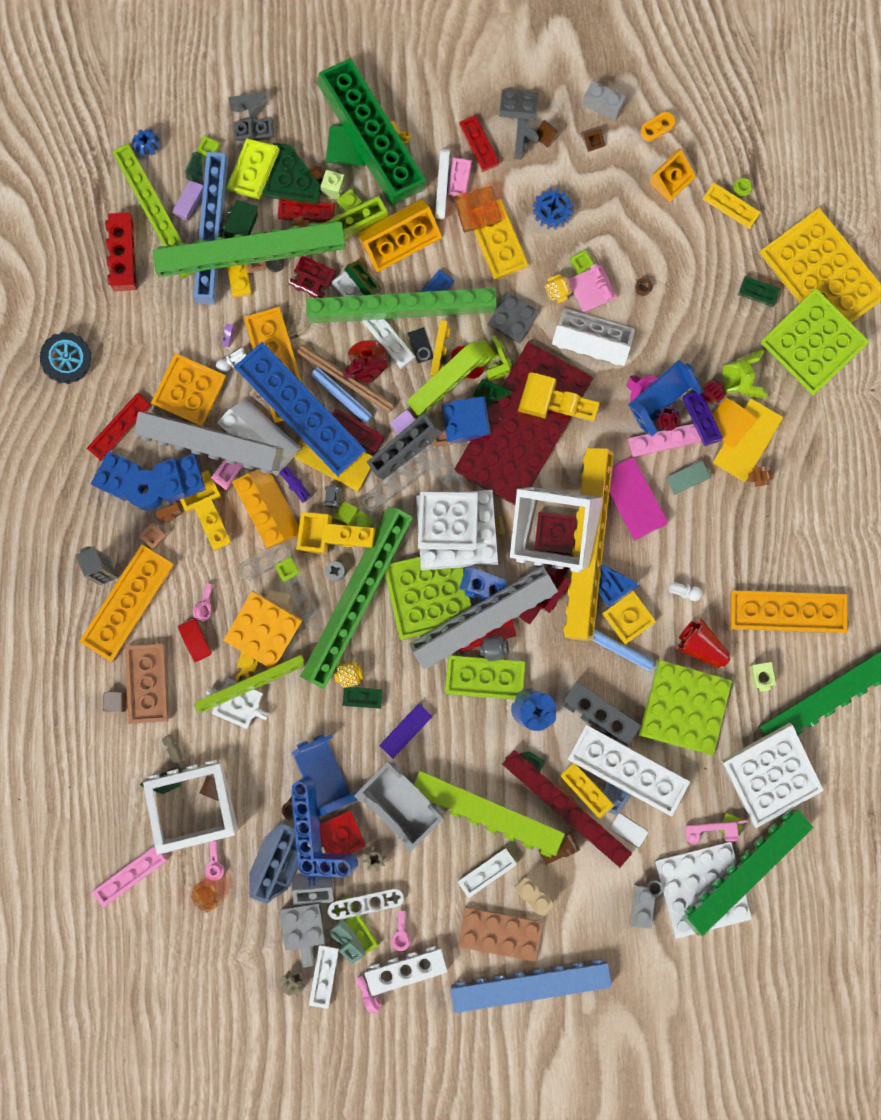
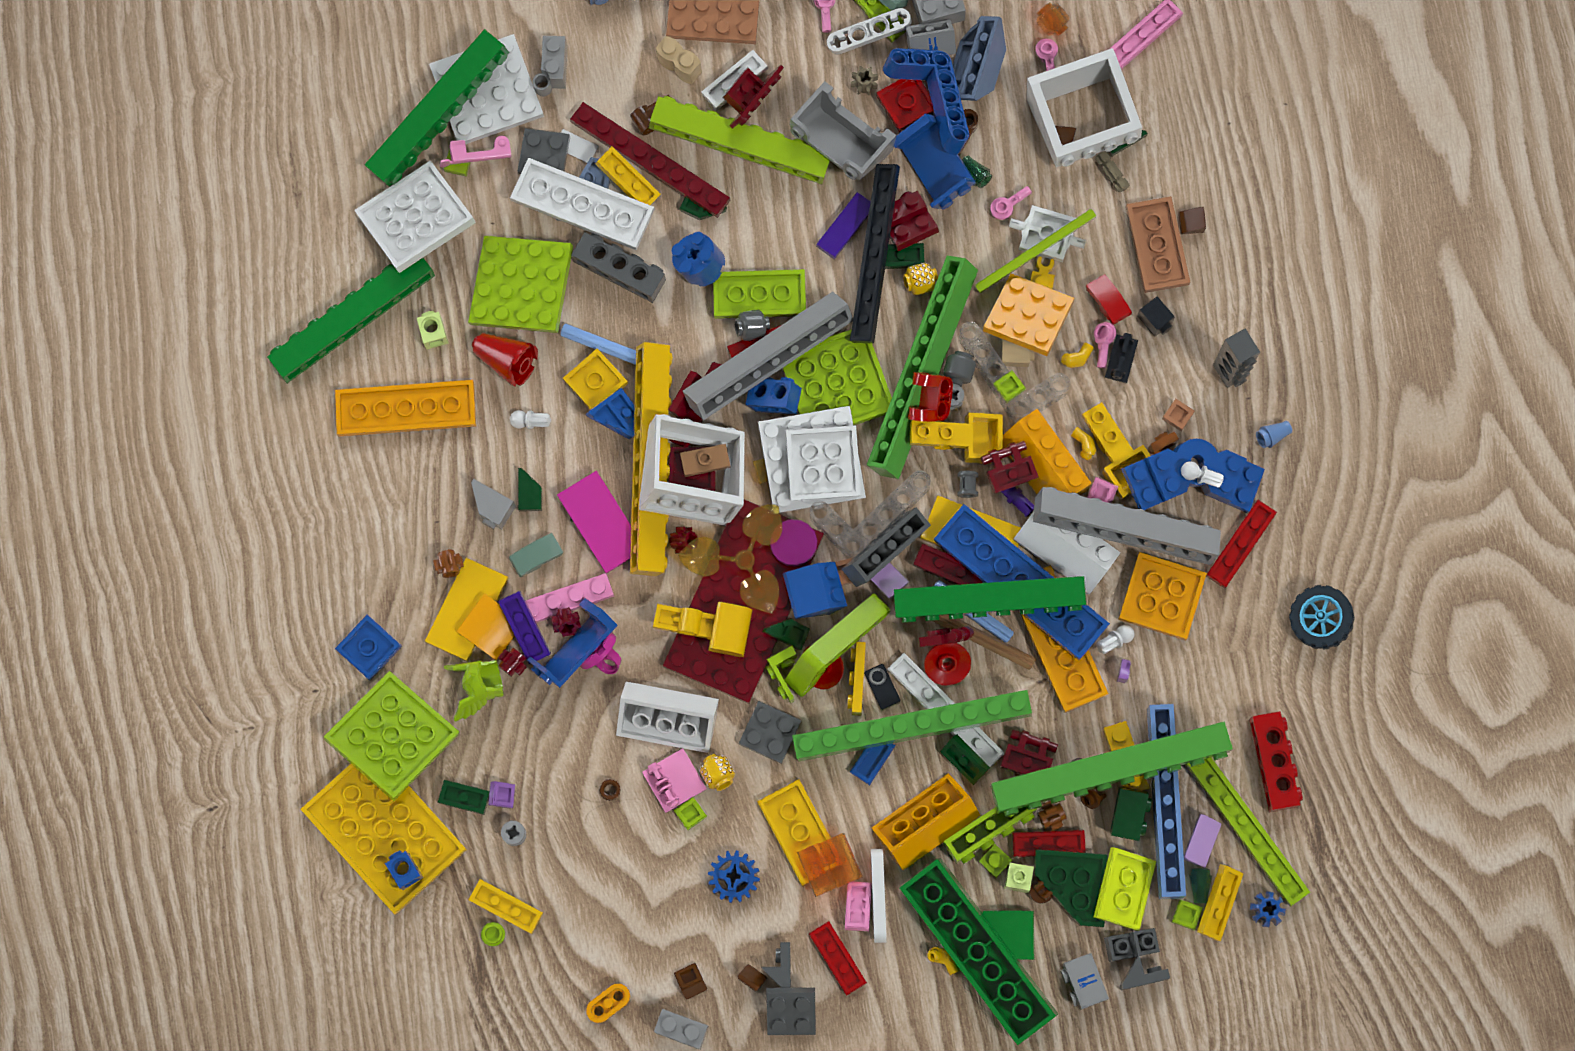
camera: 175 degrees right, 5 degrees down
(80, 511) = (1272, 434): none -> medium blue cone
(126, 603) = (1196, 334): light orange plate -> none
(149, 477) = (1191, 471): none -> white axle
(157, 620) = (1156, 317): none -> black brick
(181, 151) = (1220, 902): none -> yellow plate
(192, 589) = (1121, 358): none -> black hinge
(228, 592) = (1077, 359): none -> yellow arm
(229, 518) = (1087, 442): none -> yellow arm
(271, 731) = (1002, 207): none -> bright pink plate
(289, 765) = (978, 171): none -> clear green cone
(293, 106) = (1084, 981): none -> light grey brick
(294, 497) = (1011, 474): none -> dark red plate
(326, 394) = (990, 597): none -> green brick
(326, 593) = (960, 368): none -> dark grey head
(350, 564) = (934, 397): none -> red piece
(351, 516) = (939, 463): lime slope -> none
(353, 726) = (911, 221): none -> dark red plate
(384, 698) = (875, 253): none -> black tile
(476, 854) = (747, 91): none -> dark red bracket
(479, 461) = (795, 544): none -> magenta tile
(512, 425) = (759, 590): none -> clear yellow plant
(544, 537) = (705, 460): none -> medium nougat plate
(568, 474) = (681, 538): none -> dark red gear
(656, 827) = (544, 147): none -> dark grey plate
(672, 175) = (583, 937): light orange slope -> none
(690, 530) = (528, 492): none -> dark green tile
(719, 263) = (513, 837): none -> light grey wheel
(722, 521) = (492, 506): none -> light grey slope
(729, 290) = (501, 794): none -> medium lavender tile
(813, 228) = (408, 879): none -> blue brick
(828, 418) = (368, 647): none -> blue tile

